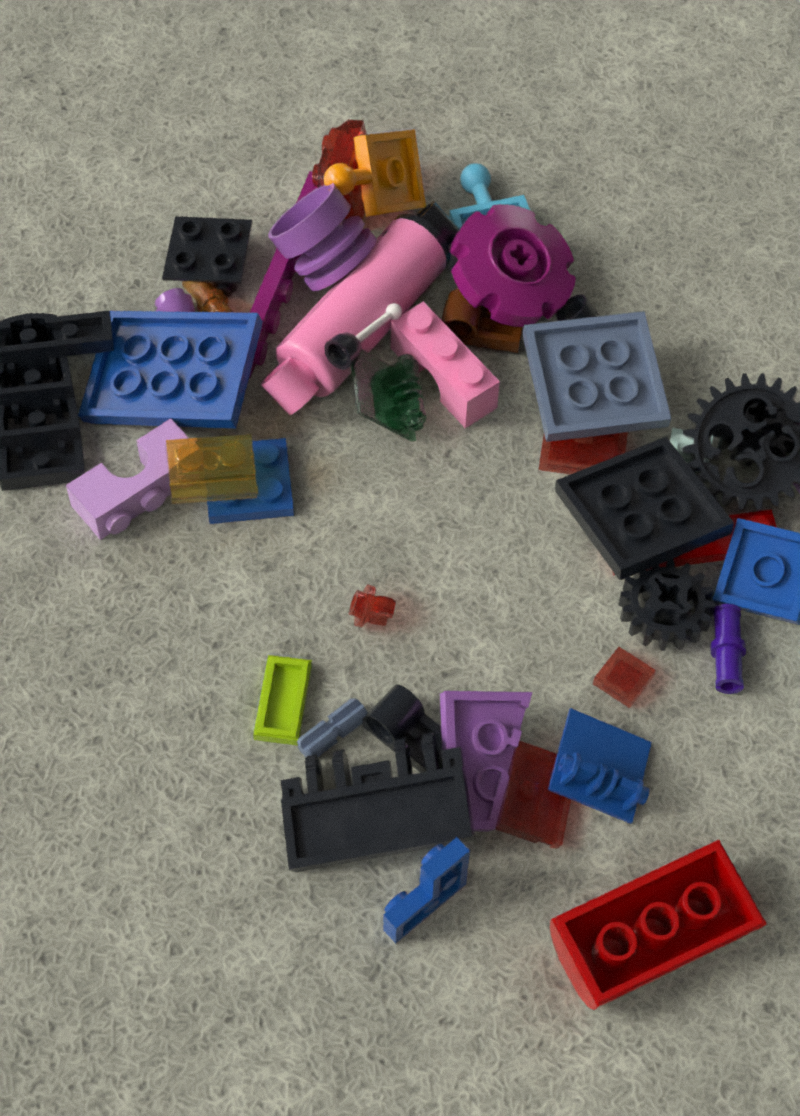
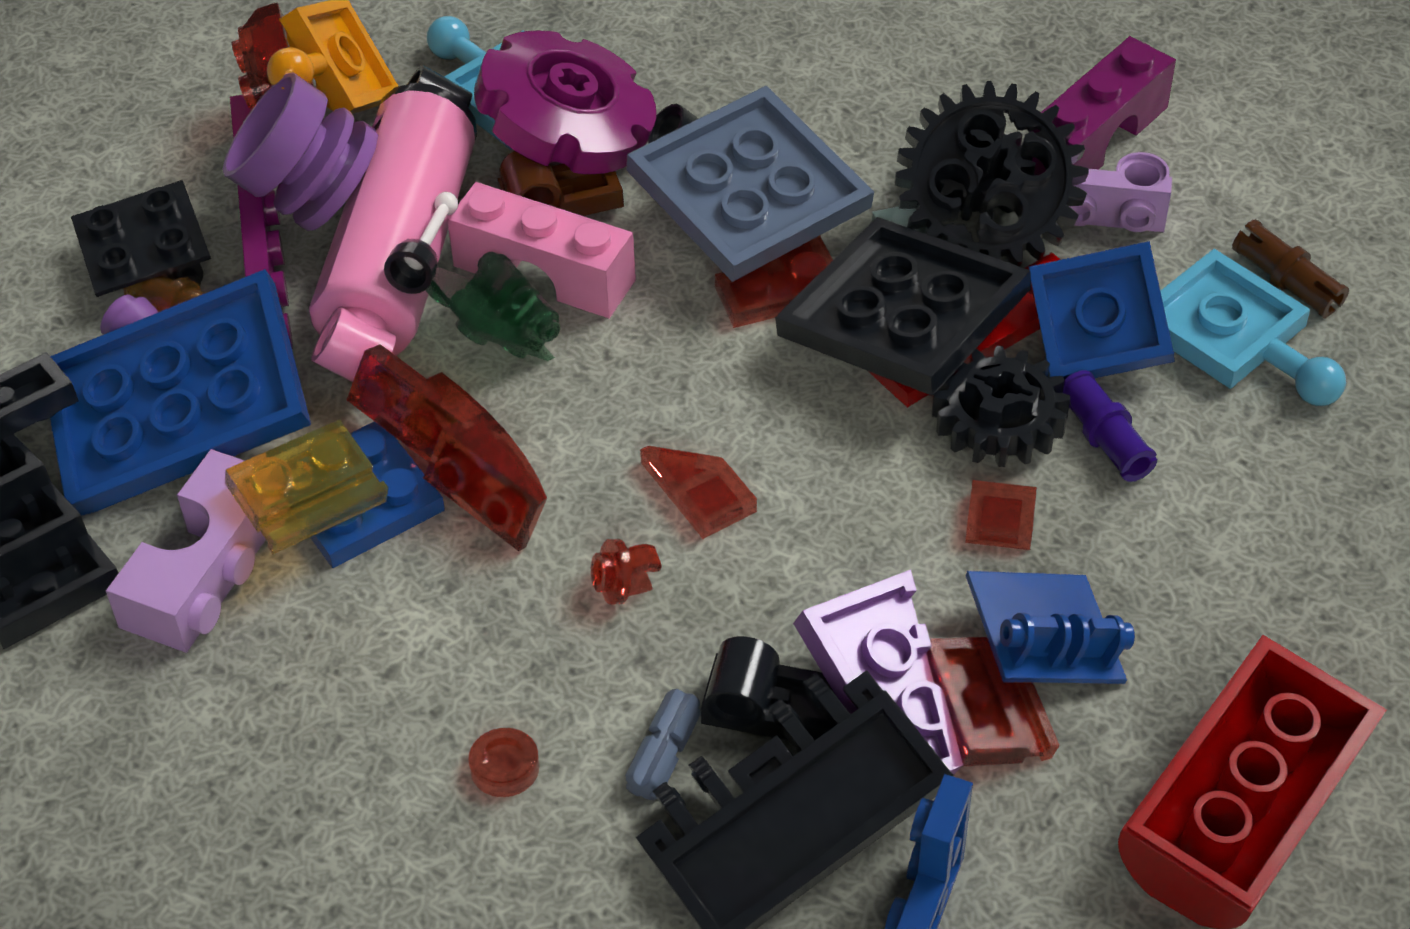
camera: 25 degrees left, 10 degrees down
(237, 695) = (504, 762): none -> clear red tile
(282, 700) = (571, 740): lime tile -> none
(322, 483) = (462, 442): none -> clear red slope
(451, 572) = (700, 487): none -> clear red tile

